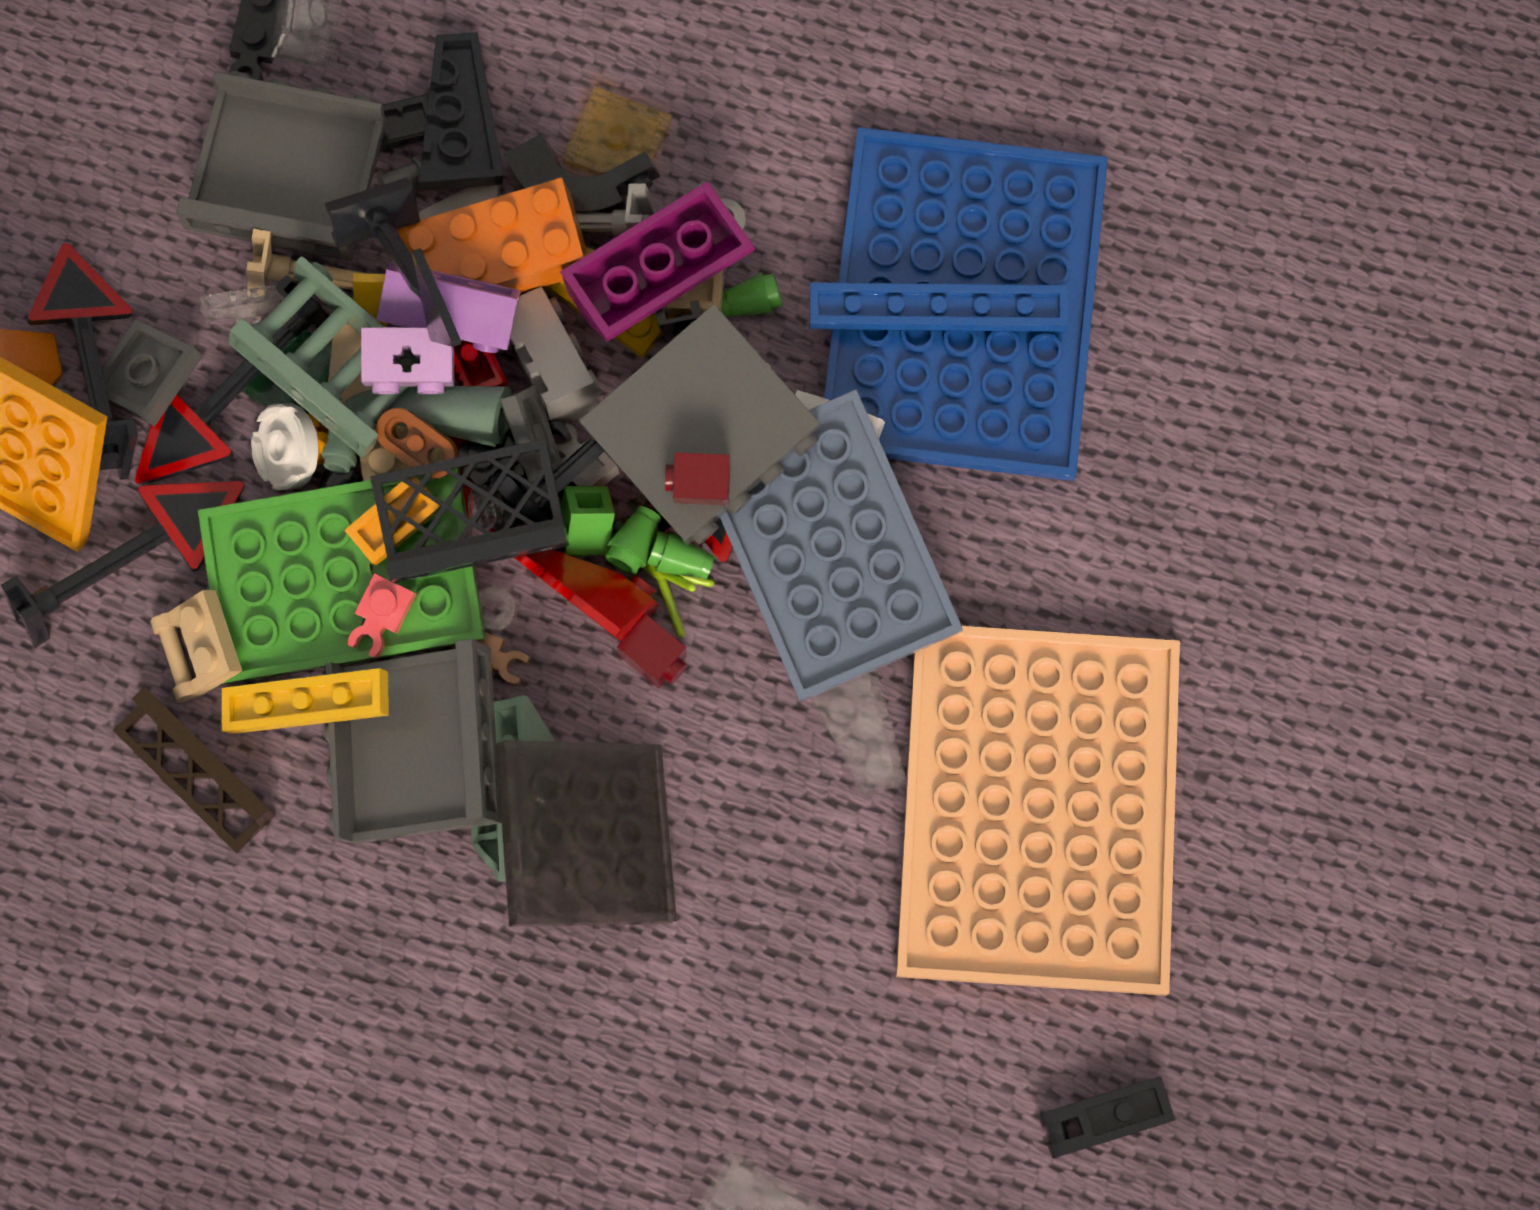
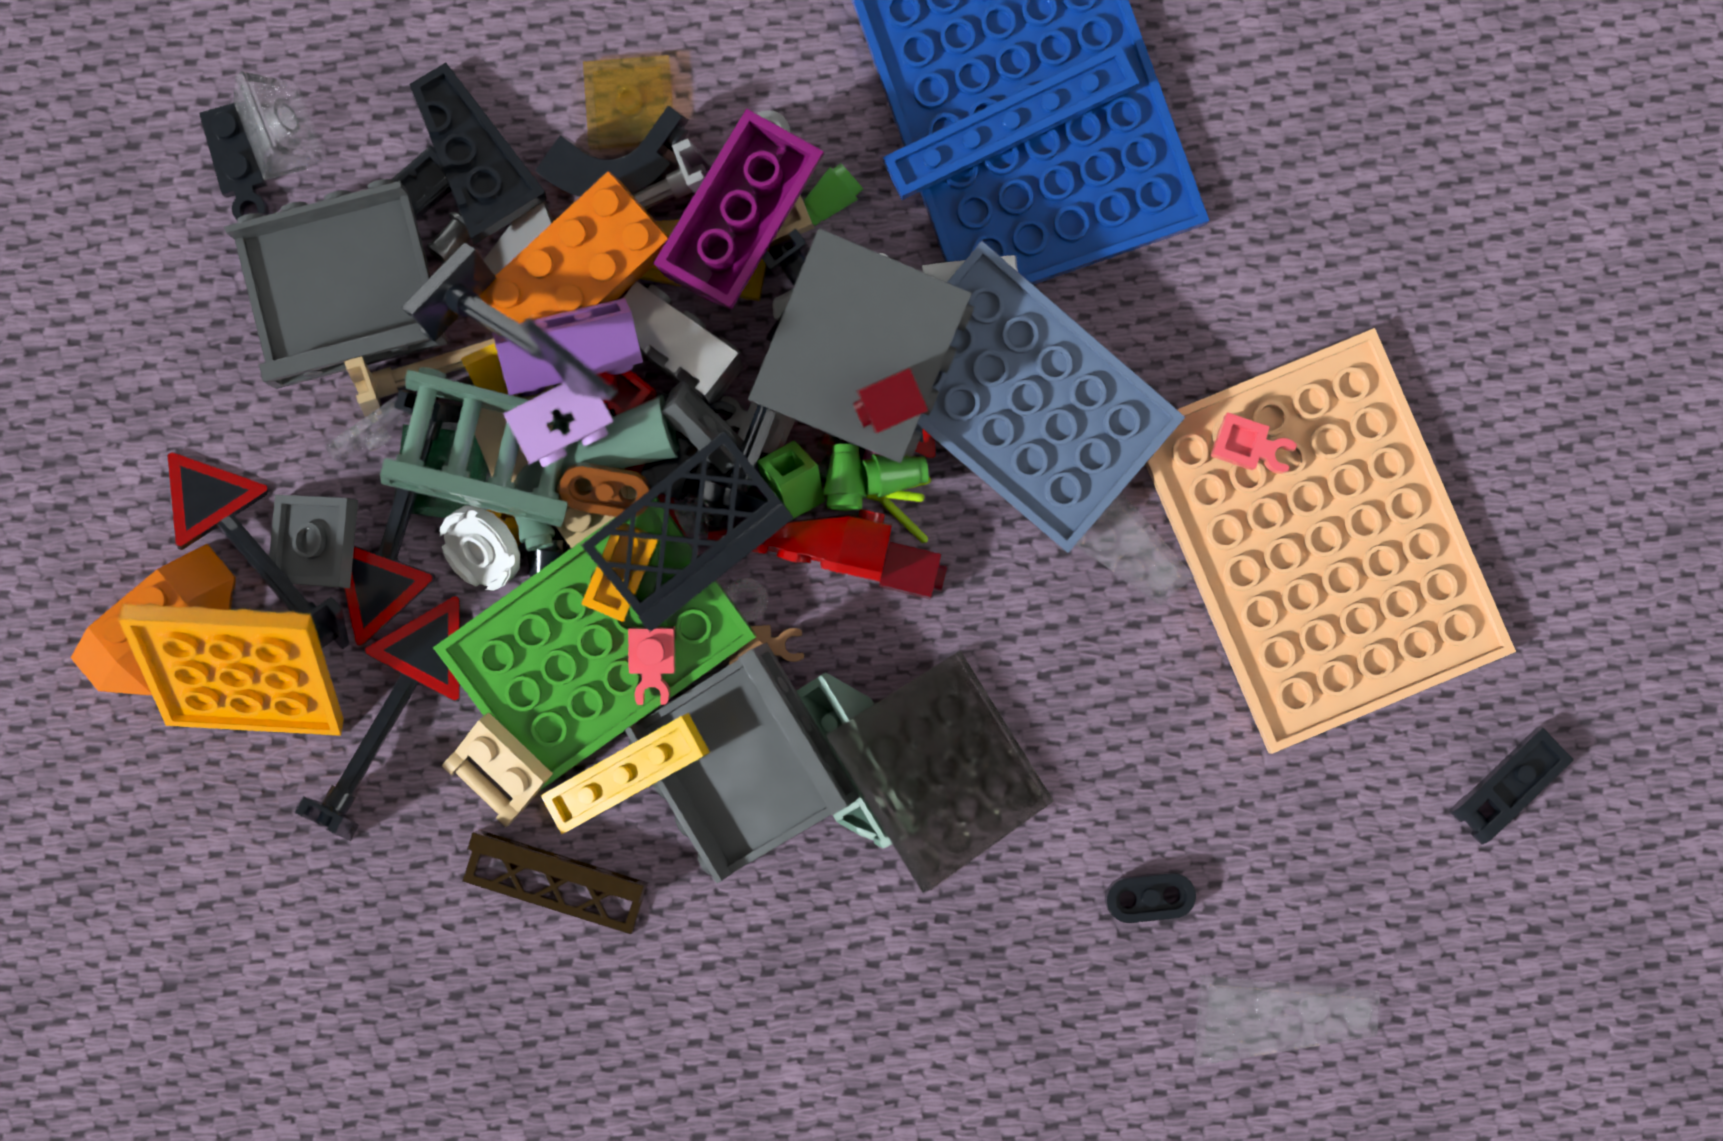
camera: 25 degrees left, 10 degrees up
(719, 1053) = (1149, 897): none -> black plate
(1008, 682) = (1245, 443): none -> coral plate

